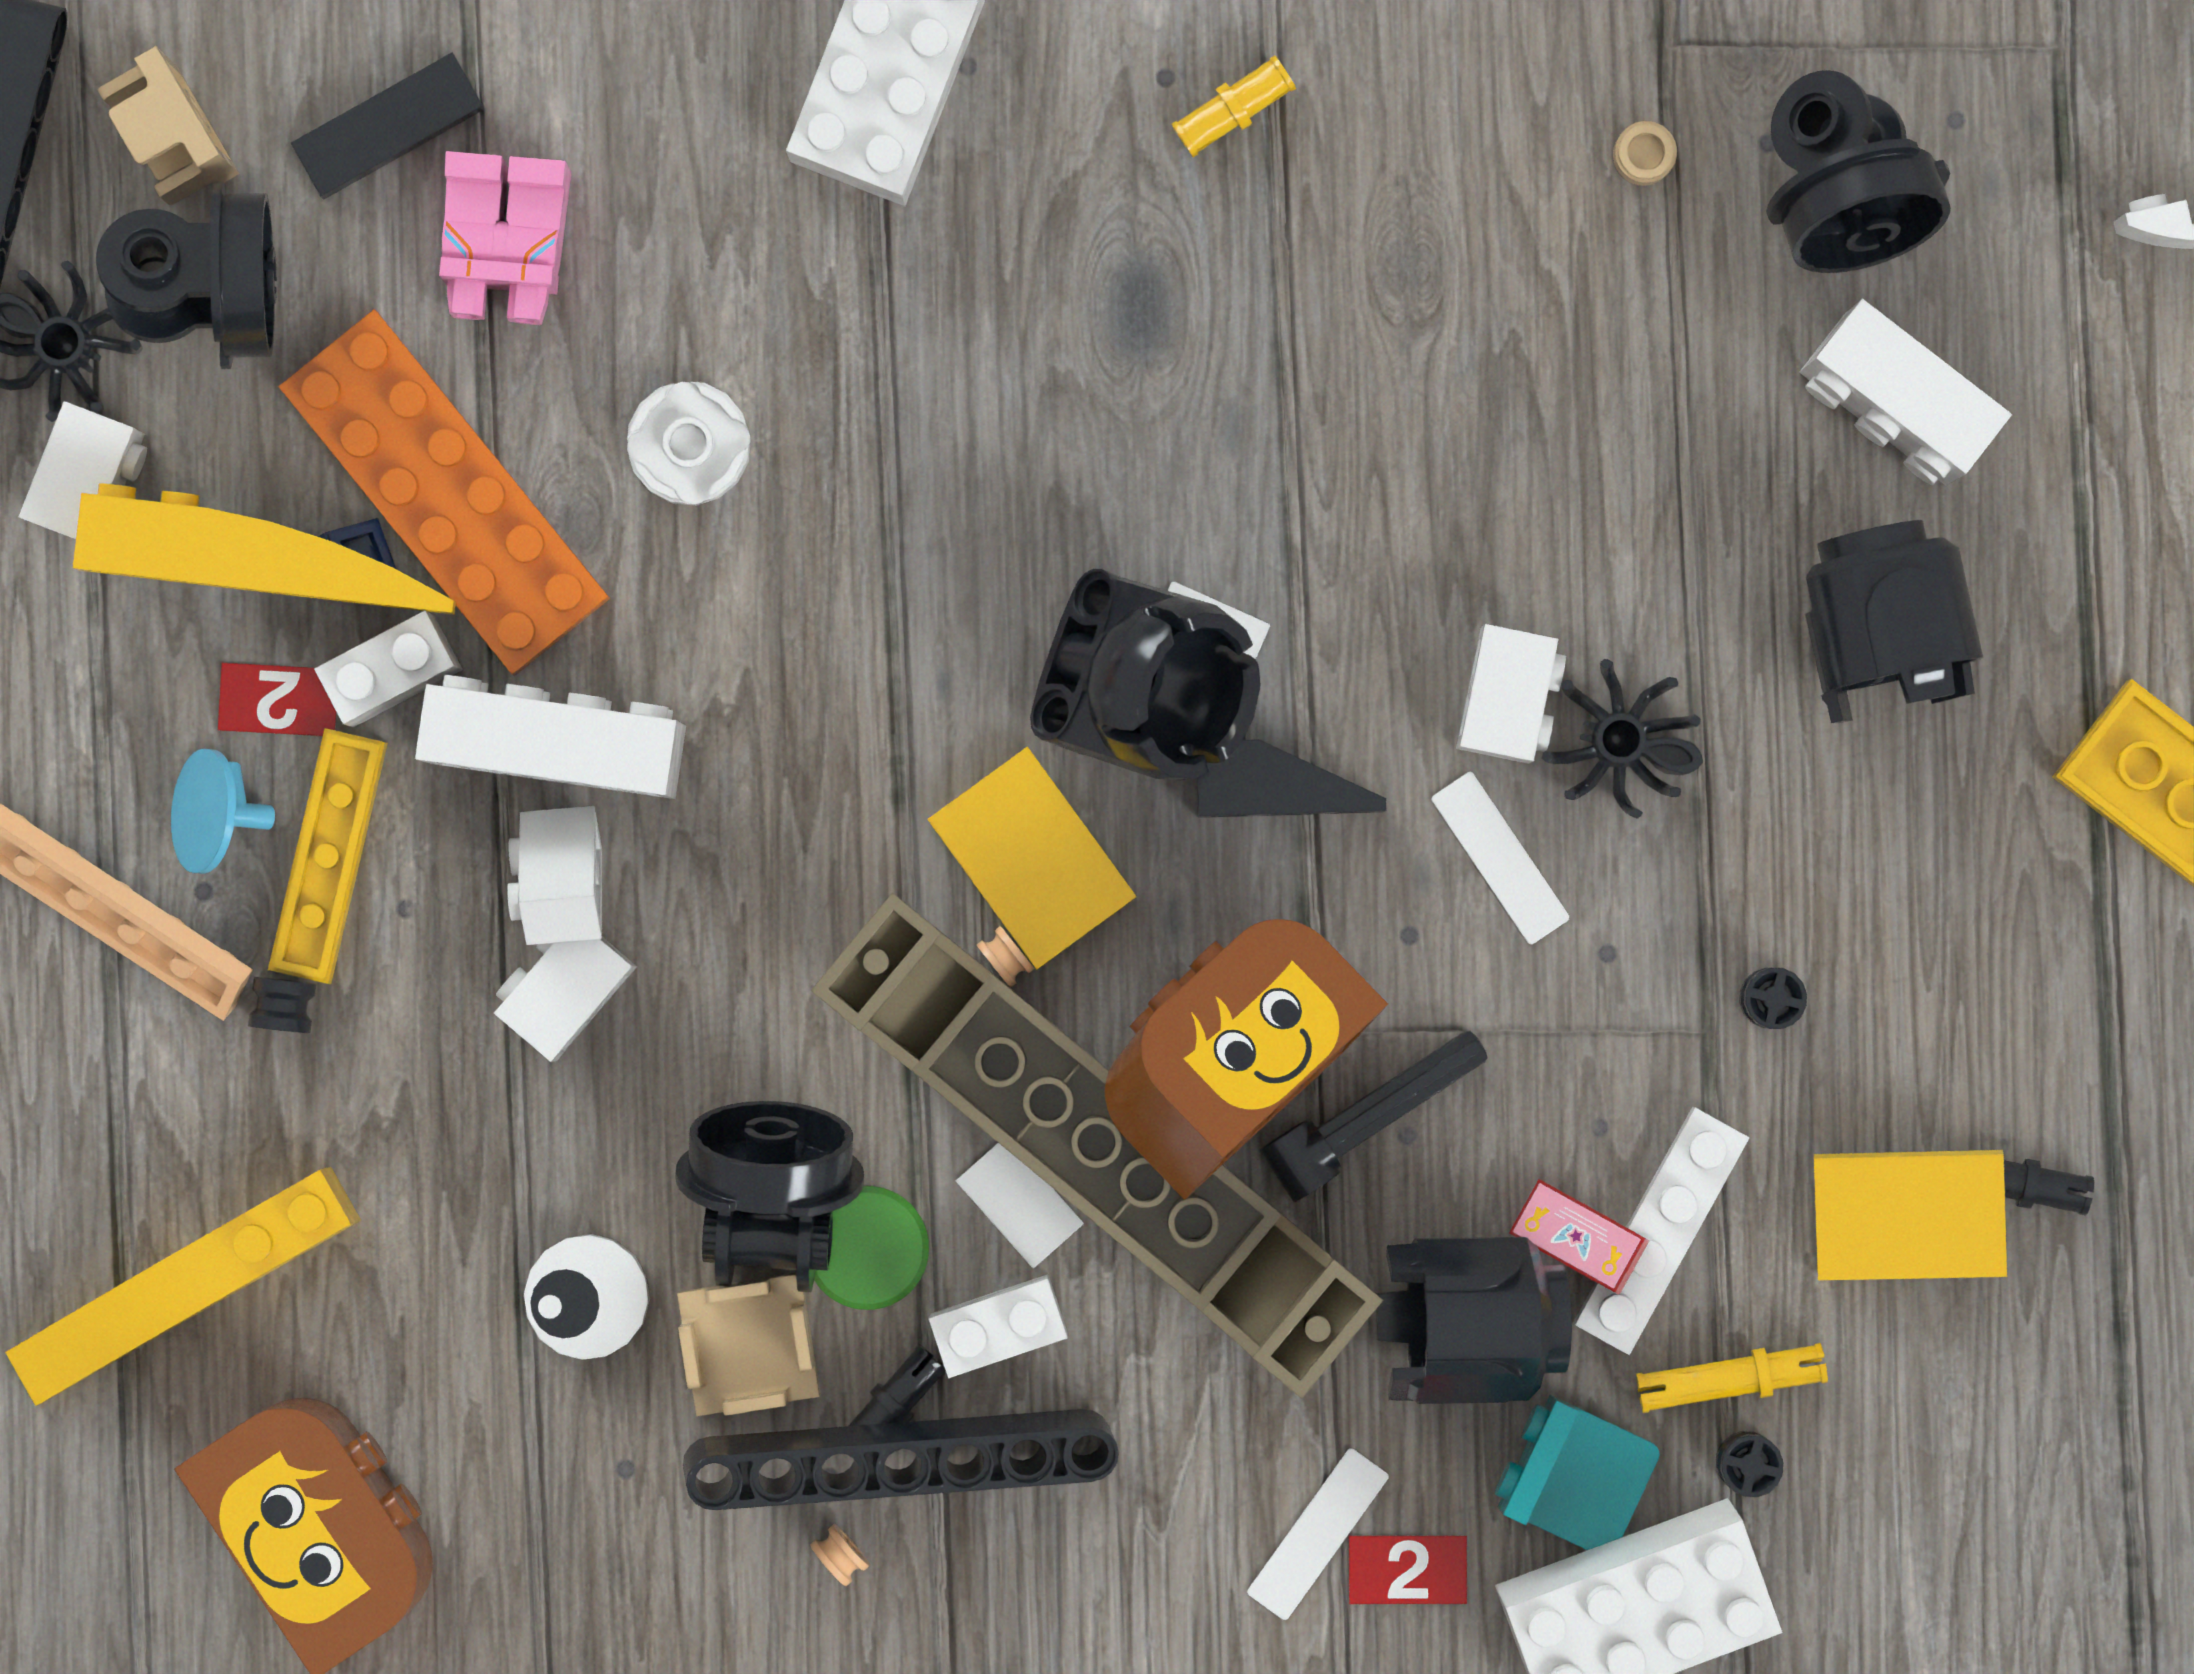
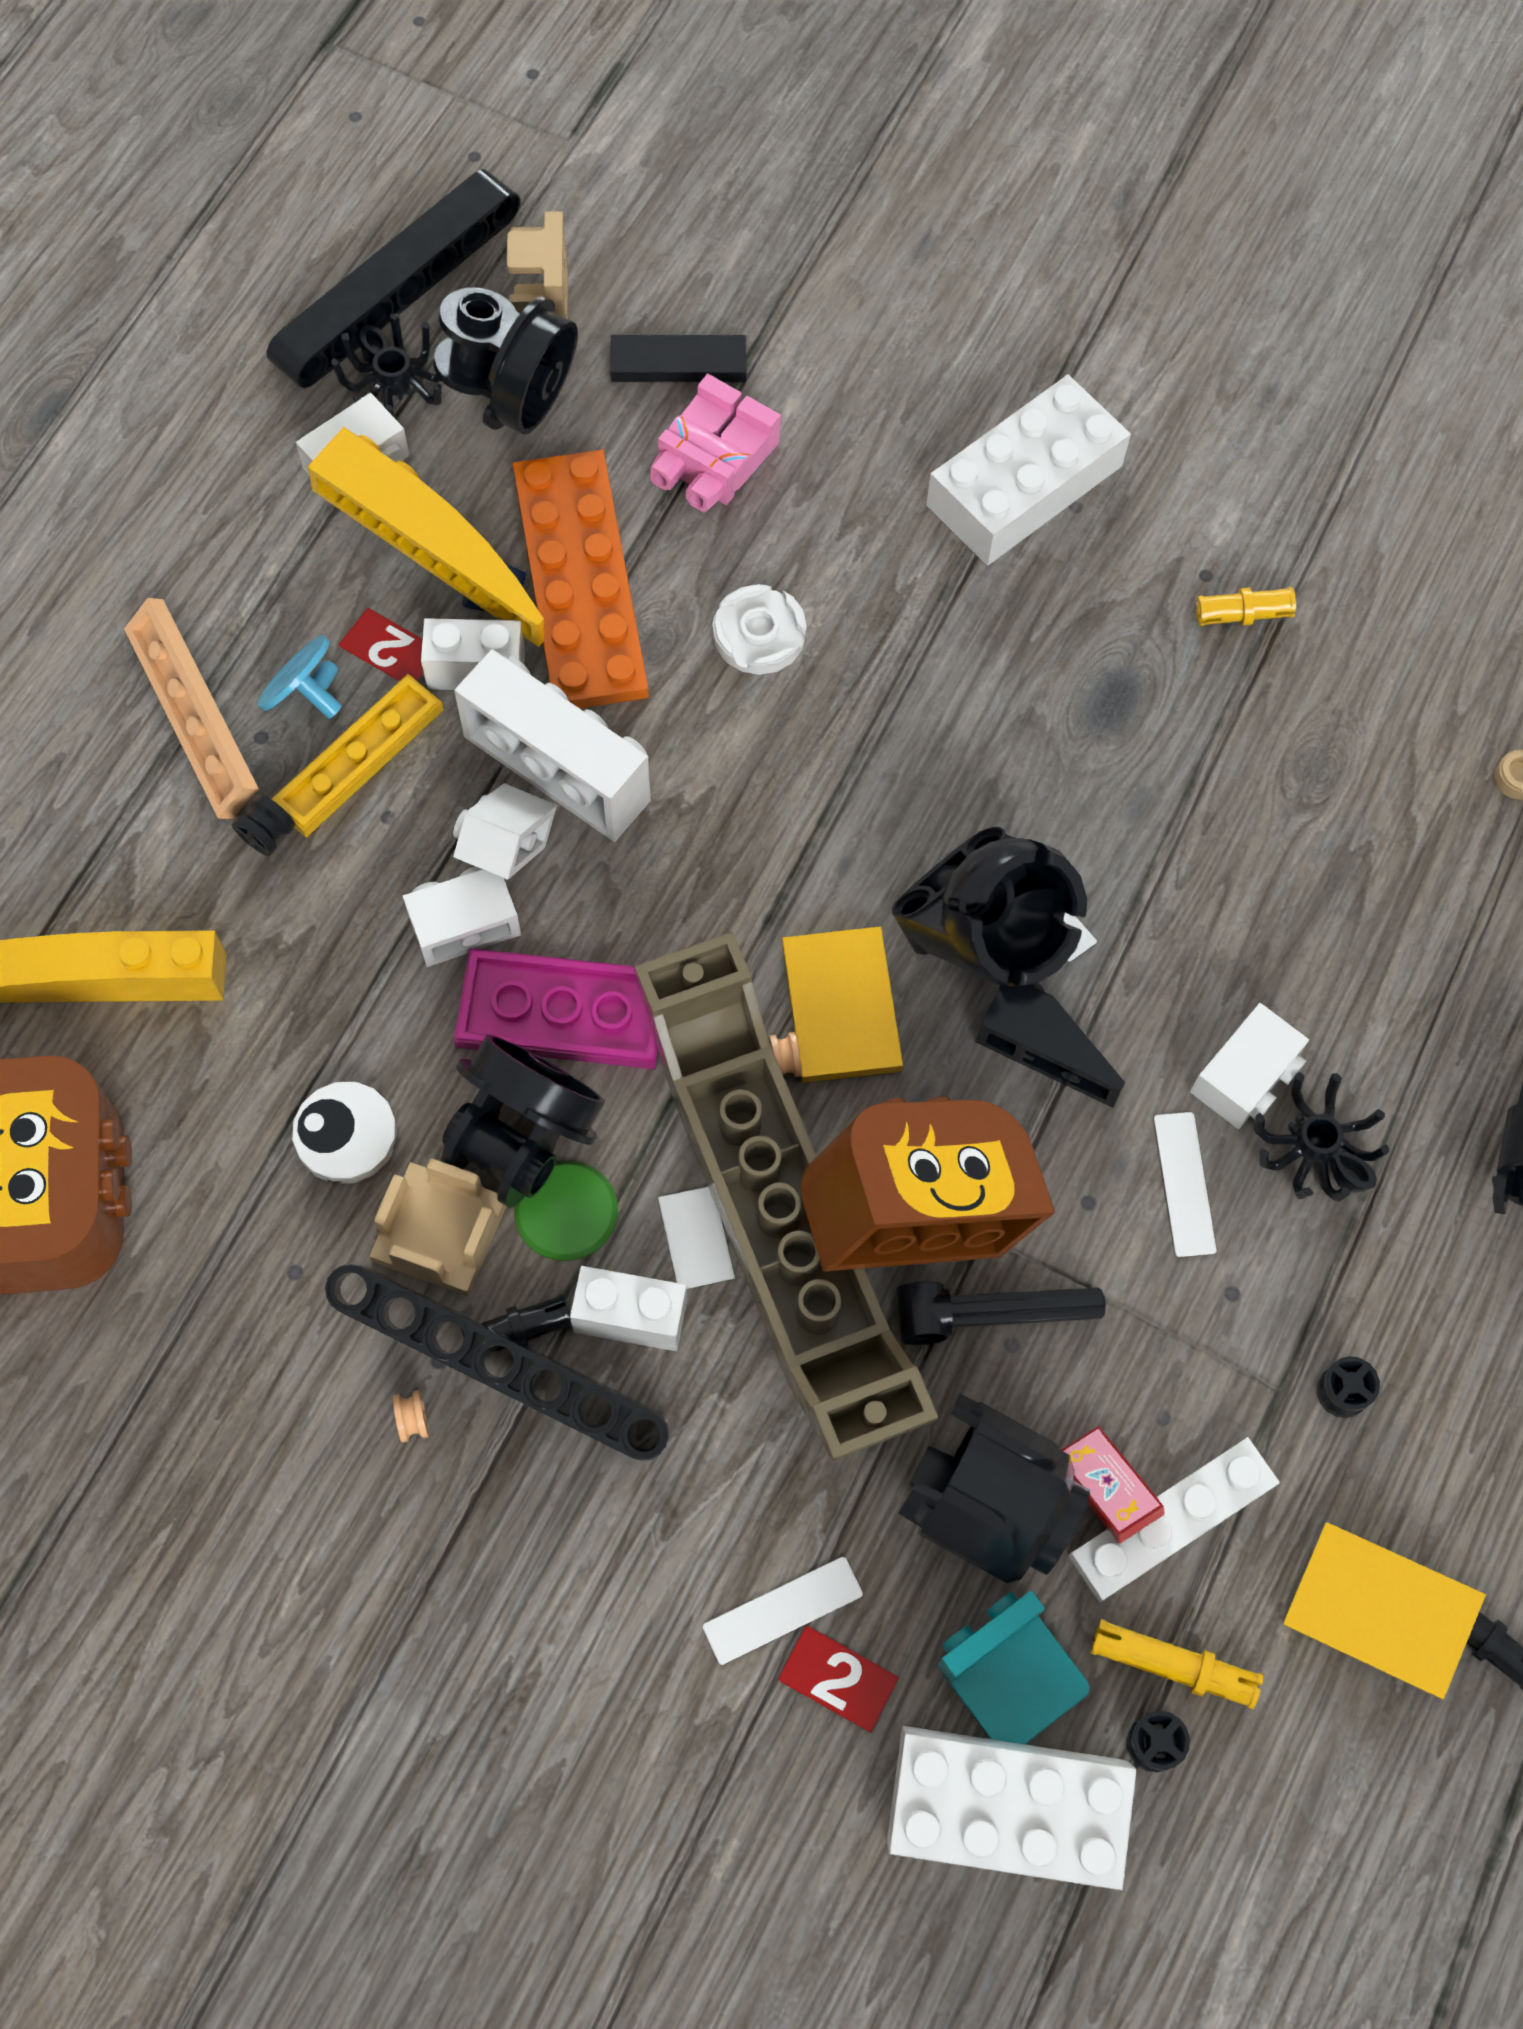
camera: 30 degrees right, 20 degrees down
(726, 1031) = (556, 1008): none -> dark pink tile

